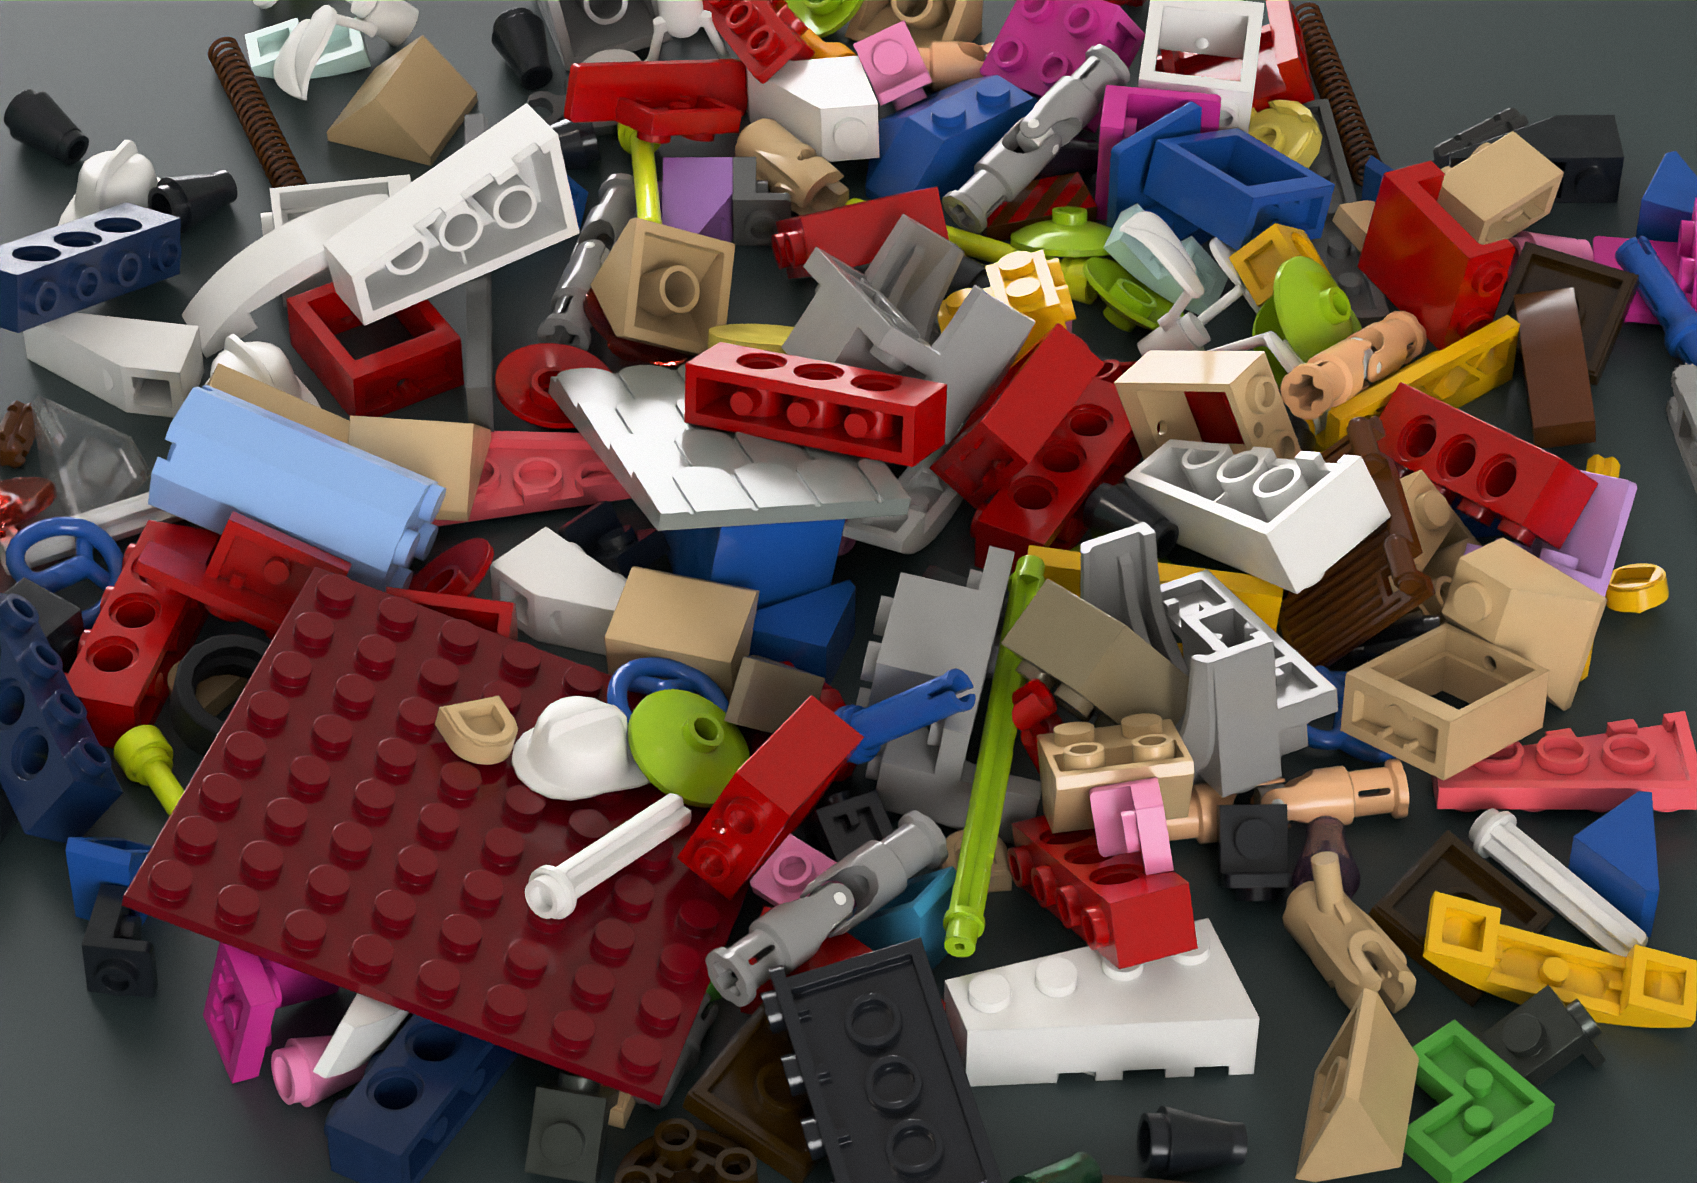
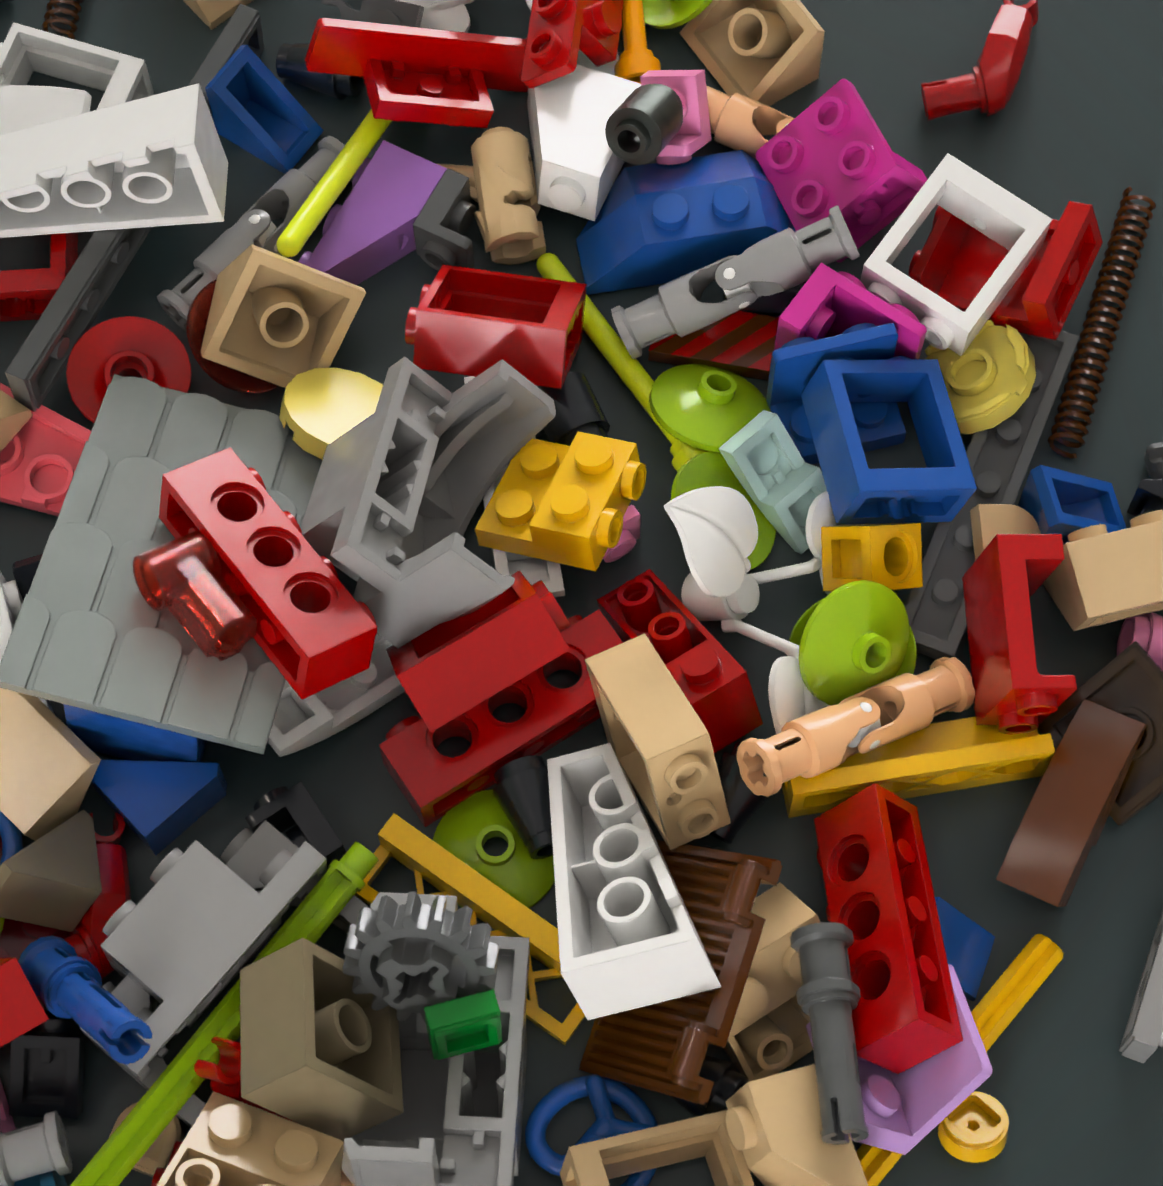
camera: 30 degrees right, 25 degrees up
(776, 428) = (190, 583): none -> clear red piece
(883, 44) = (644, 123): none -> pearl dark grey brick
(1161, 538) = (418, 955): none -> dark grey gear
(1210, 604) = (463, 1025): none -> green tile
(1480, 496) = (829, 999): none -> dark grey pin

